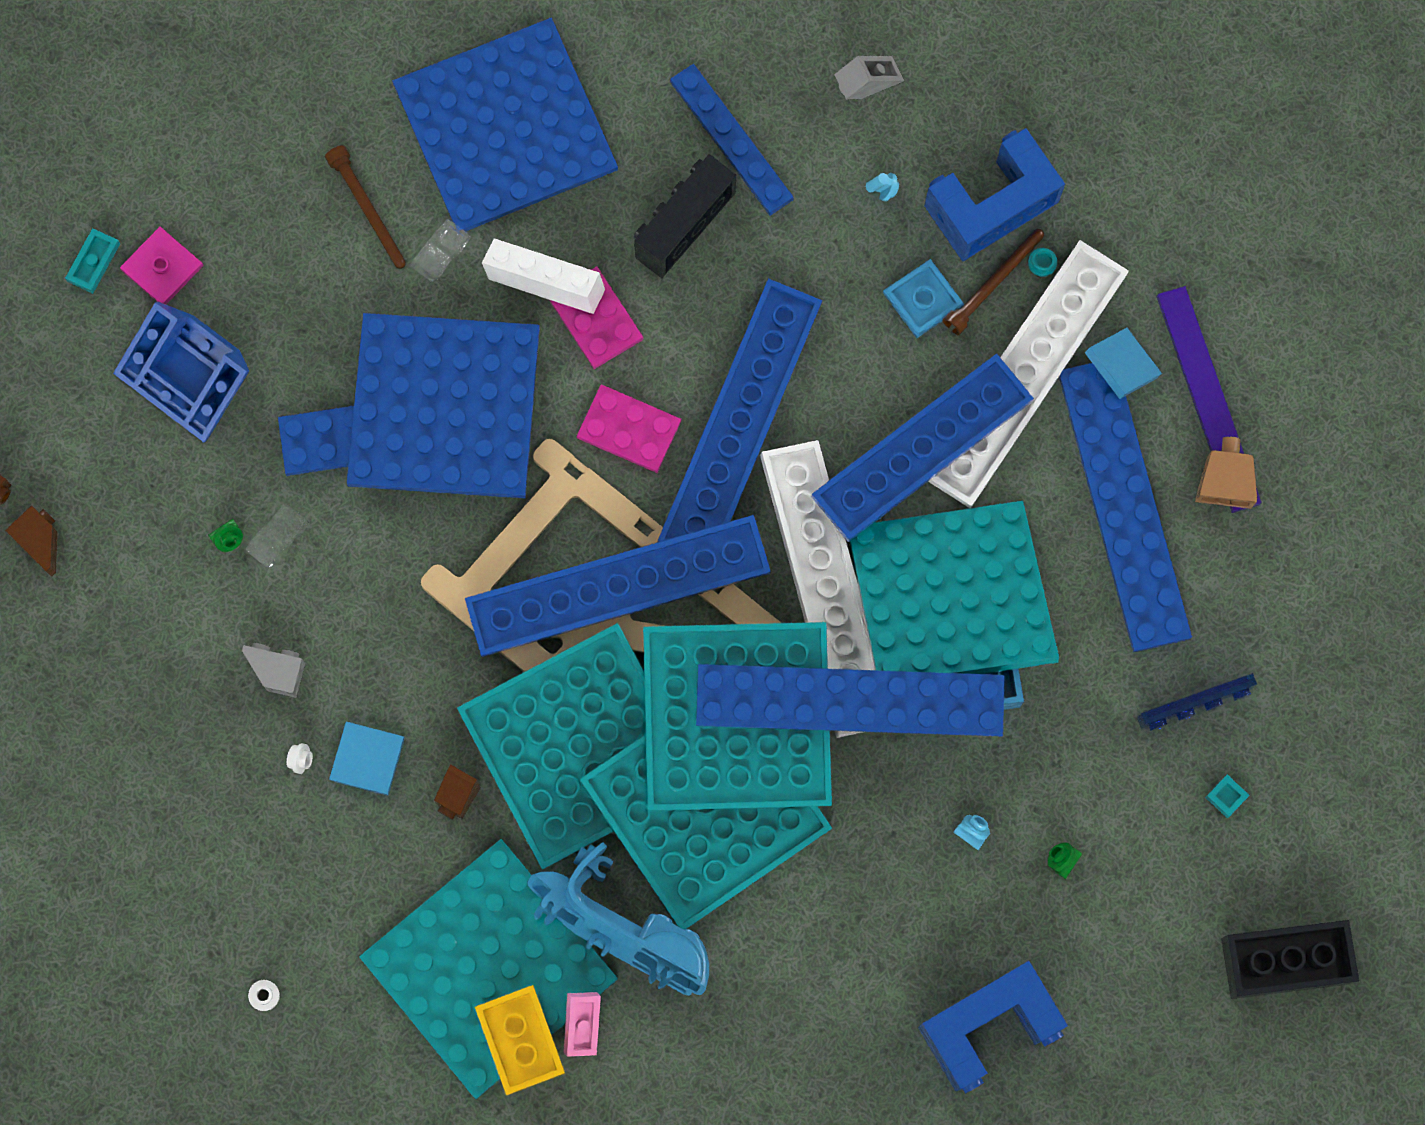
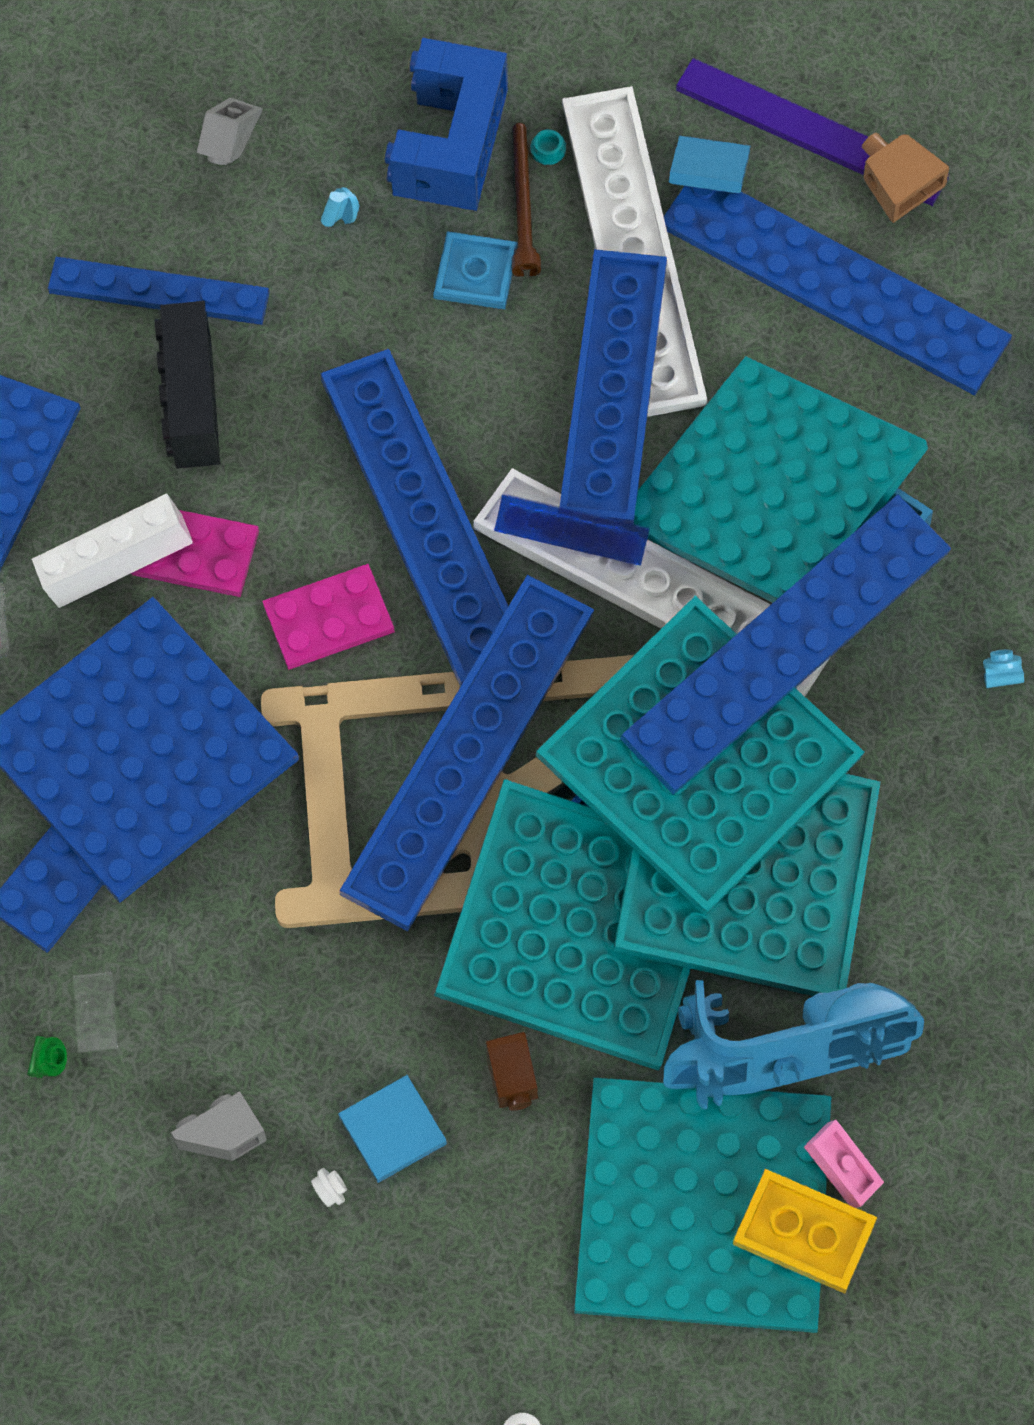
camera: 40 degrees left, 10 degrees down
(808, 511) = (572, 529): none -> clear blue plate

